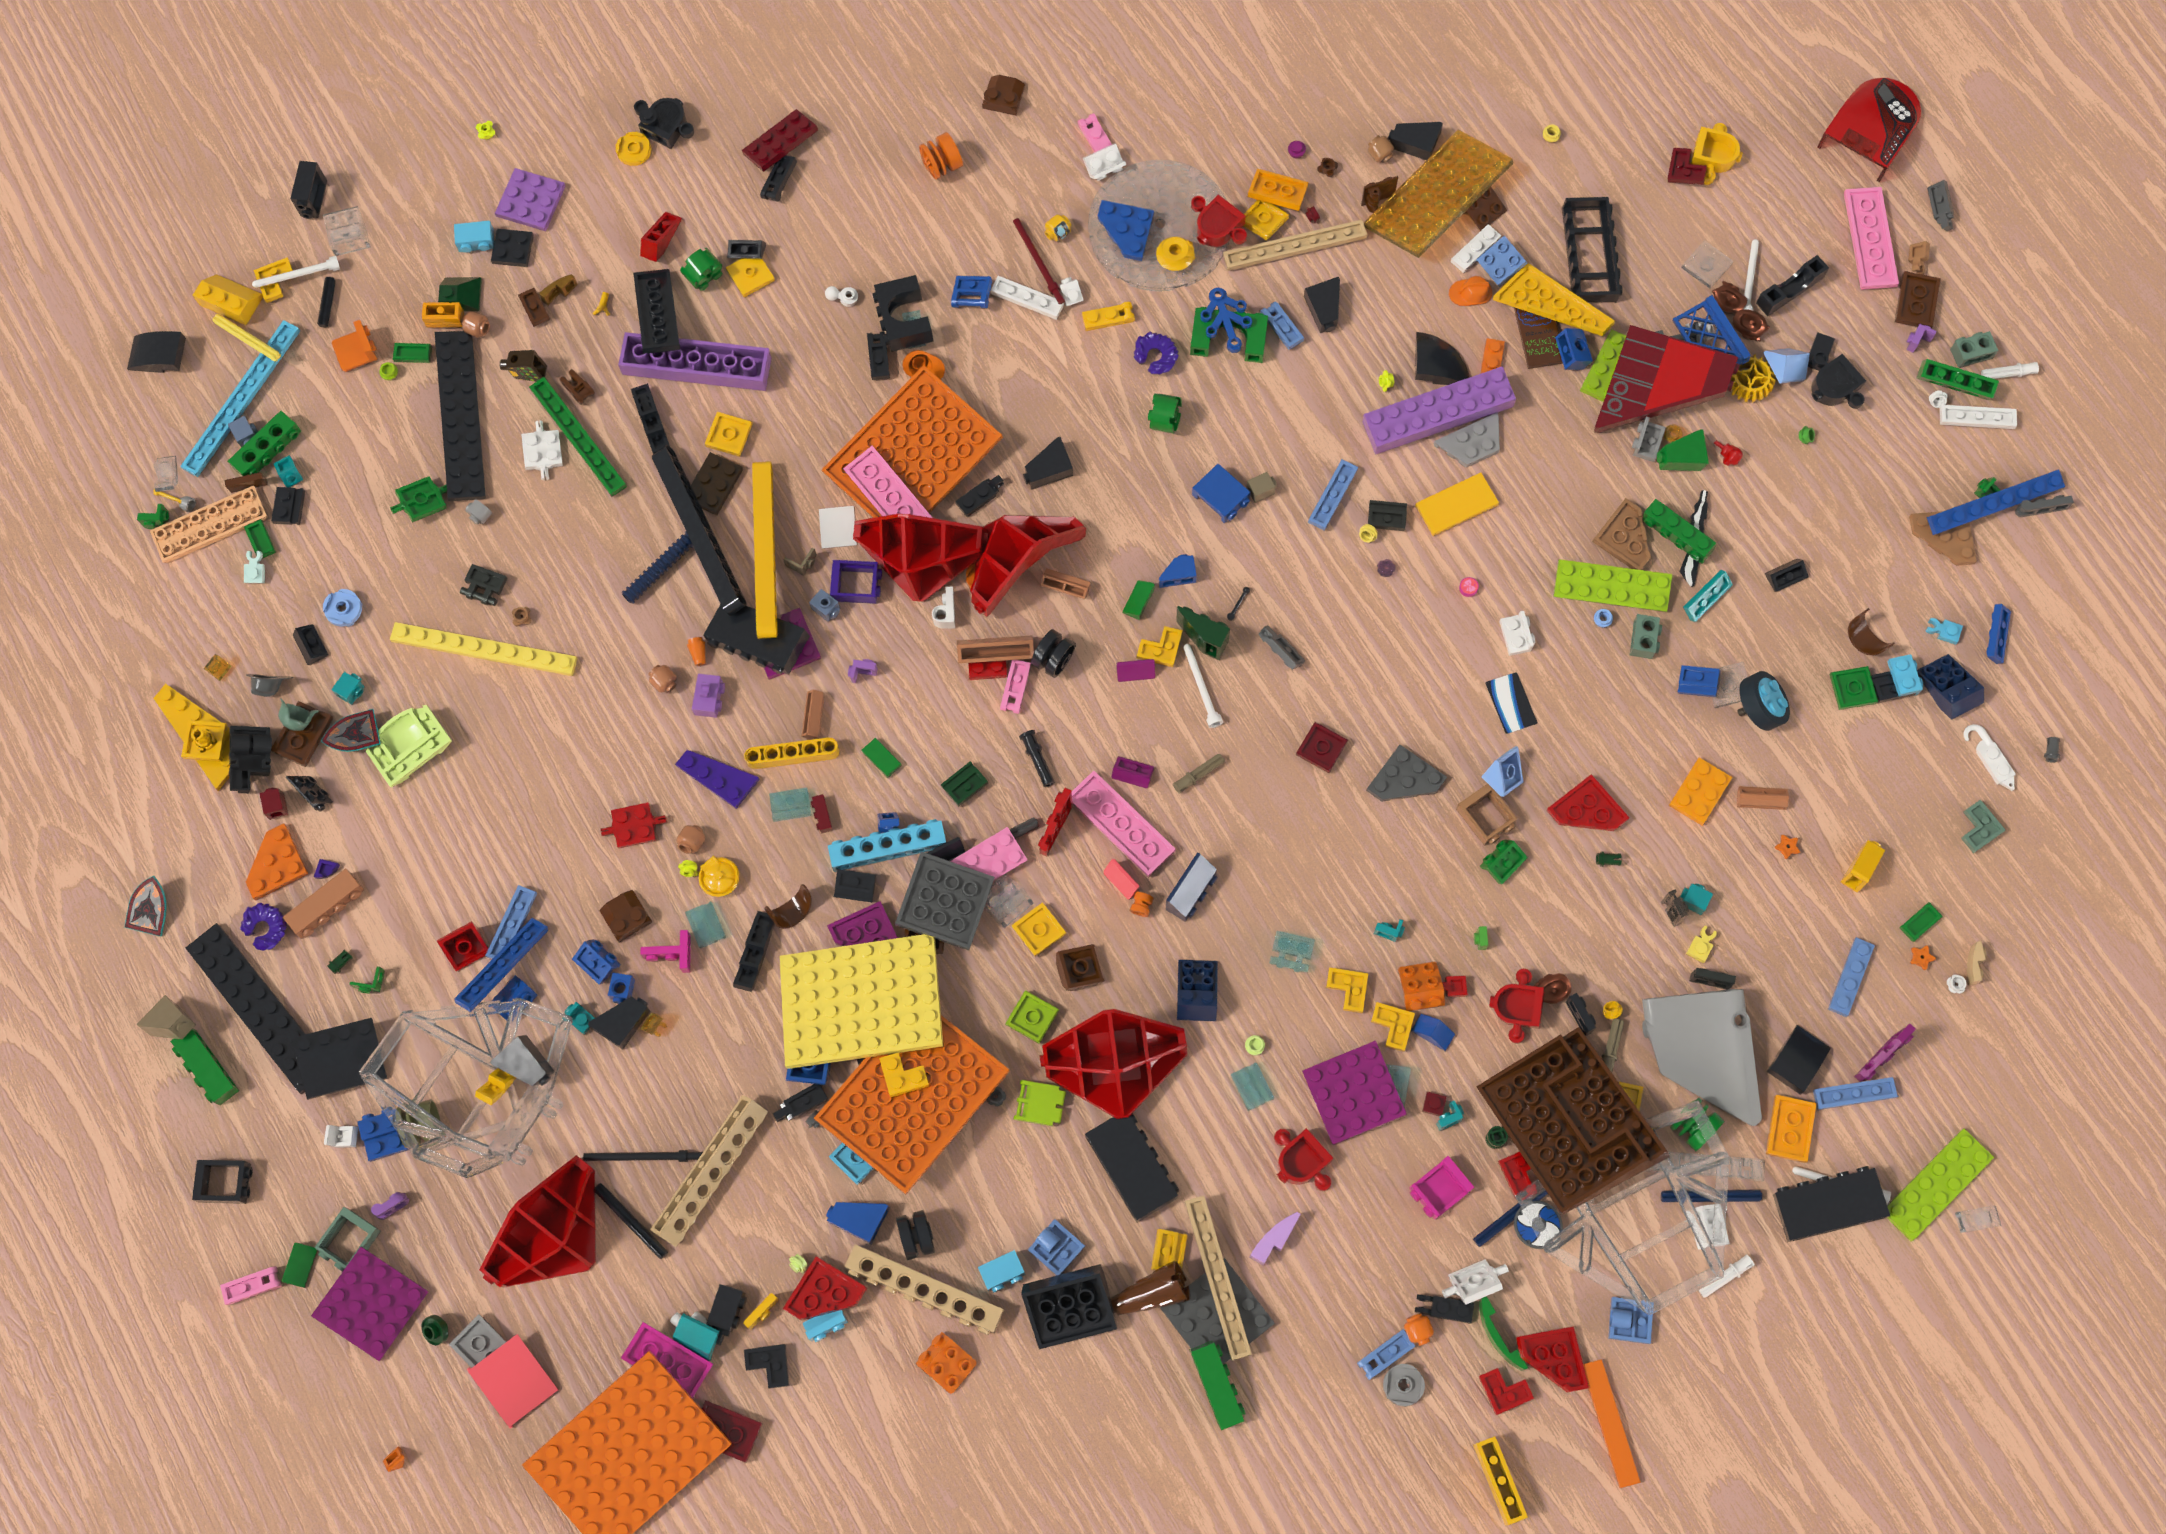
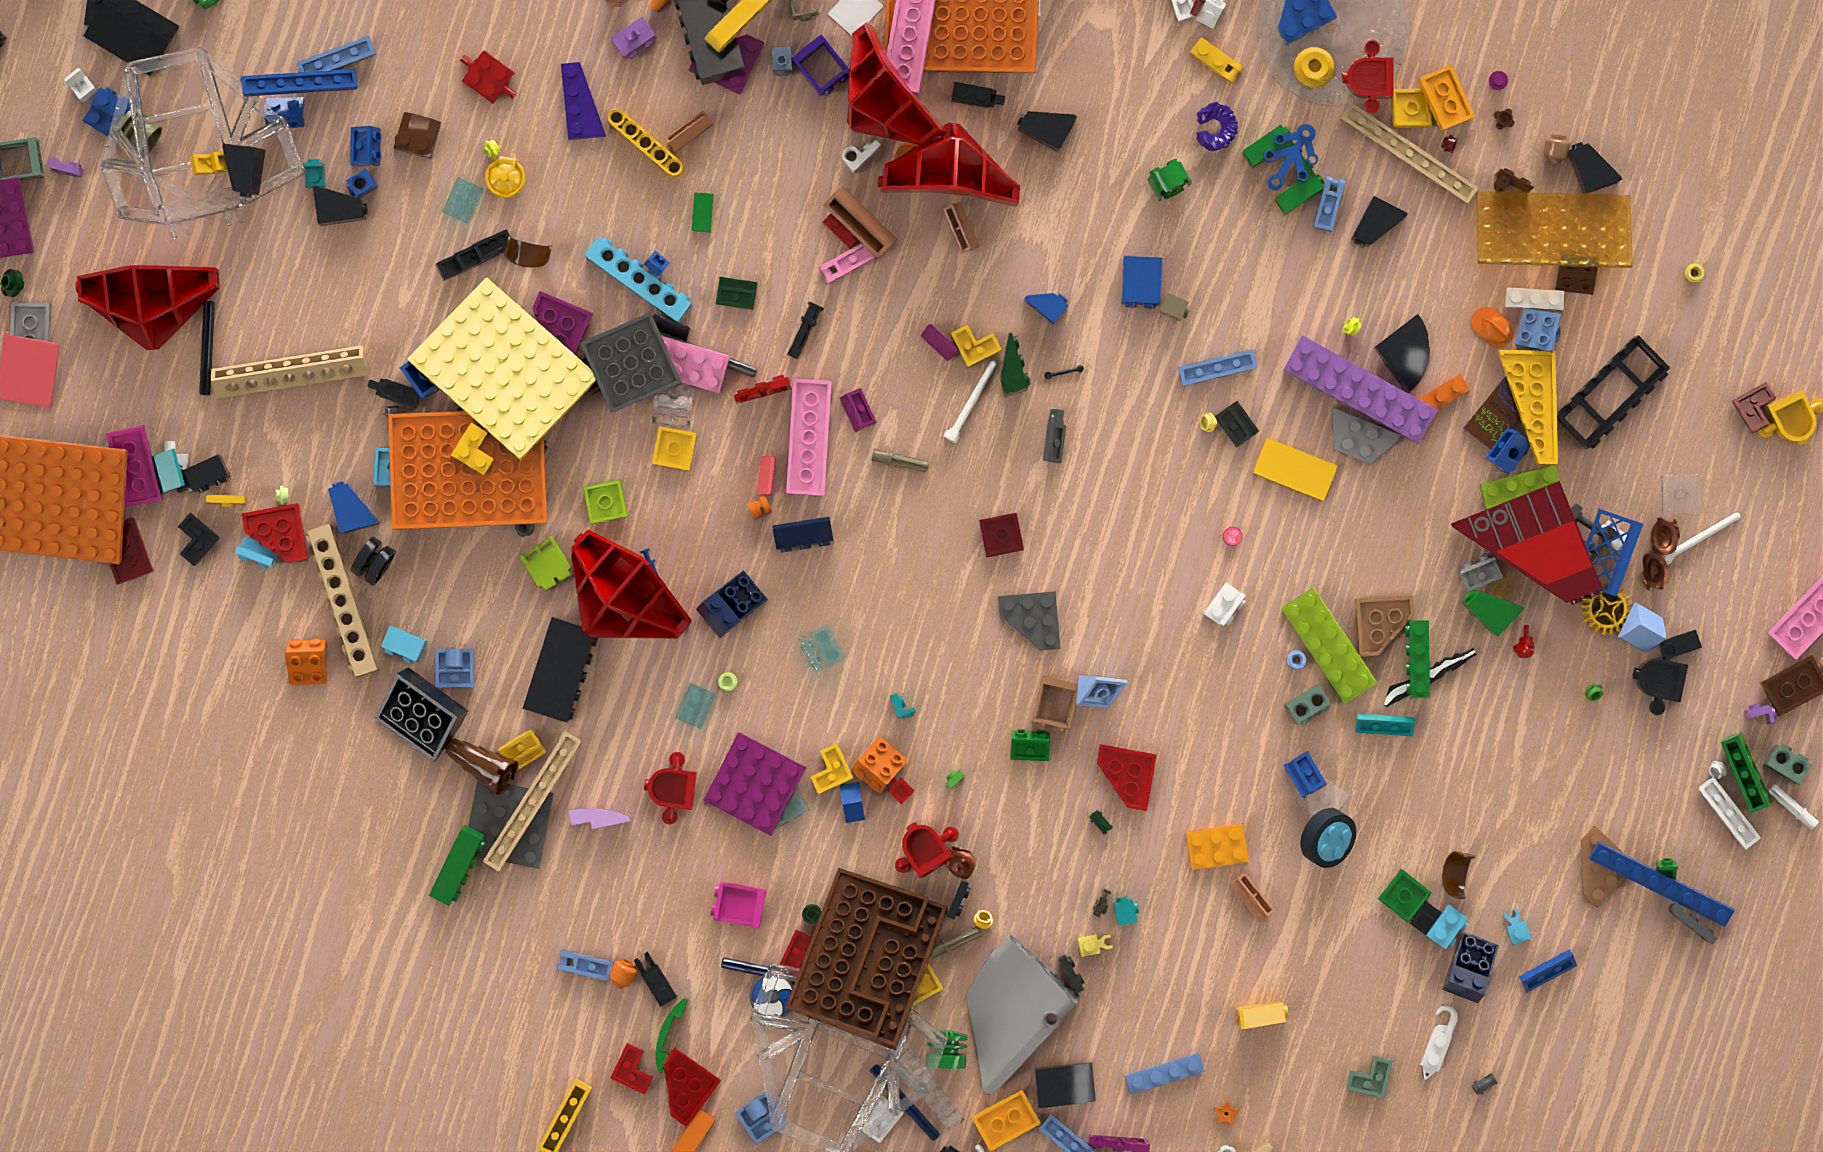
camera: 50 degrees right, 15 degrees up
(463, 946) = (290, 40): red slope -> none
(651, 1024) = (356, 231): clear yellow tile -> none
(671, 953) = (419, 196): dark pink bracket -> none
(681, 1156) = (282, 340): black bar -> none
(690, 839) = (514, 130): nougat head -> none
(790, 804) = (607, 178): clear light blue plate -> none
(821, 813) = (620, 208): dark red piece -> none
(855, 885) = (587, 283): black plate -> none
(865, 667) = (761, 135): medium lavender bracket -> none
(1053, 653) = (893, 269): black wheel -> none
(1078, 967) = (671, 503): reddish brown slope -> none
(1138, 599) = (999, 293): green slope -> none
(1353, 984) = (836, 715): yellow plate -> none
(1386, 572) = (1187, 459): clear purple plate -> none
(1412, 1377) = (563, 995): light grey plate -> none
(1434, 1104) = (798, 848): dark red plate -> none
(1447, 1119) = (794, 868): teal bracket -> none
(1475, 1281) = (690, 985): white plate -> none
(1511, 703) = (1165, 646): sticker -> none
(1787, 574) = (1458, 770): black slope -> none
(1788, 851) = (1225, 942): orange plate -> none
(1803, 279) = (1718, 578): black arch -> none
(1920, 922) = (1254, 1091): green tile -> none

